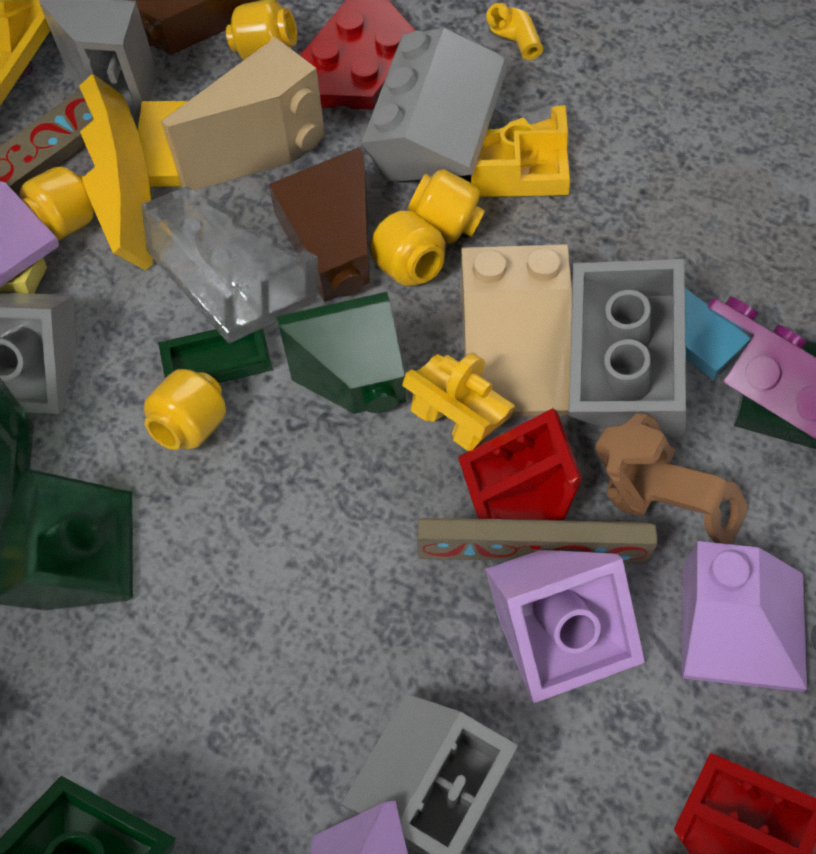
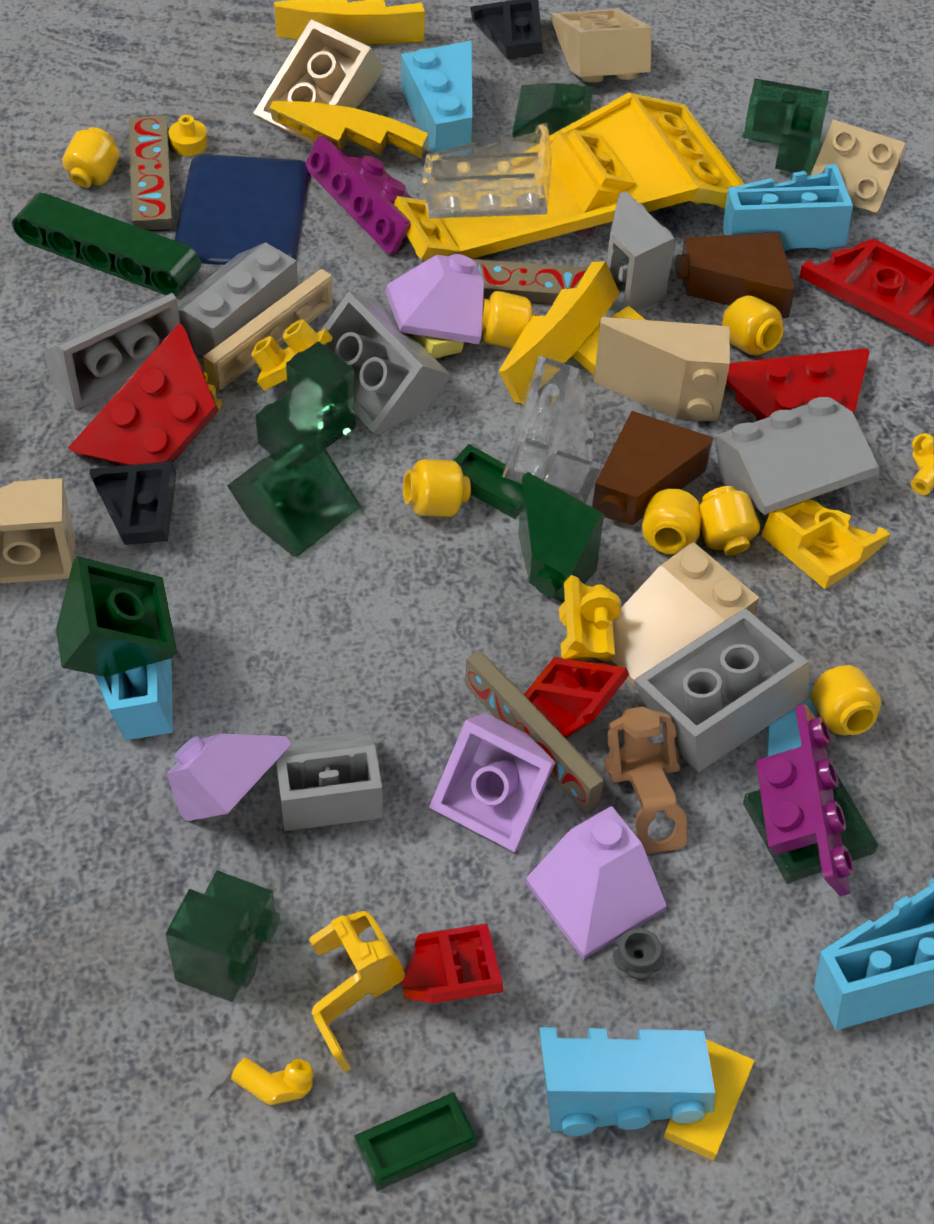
camera: 45 degrees right, 10 degrees down
(712, 264) = (846, 700): none -> yellow head

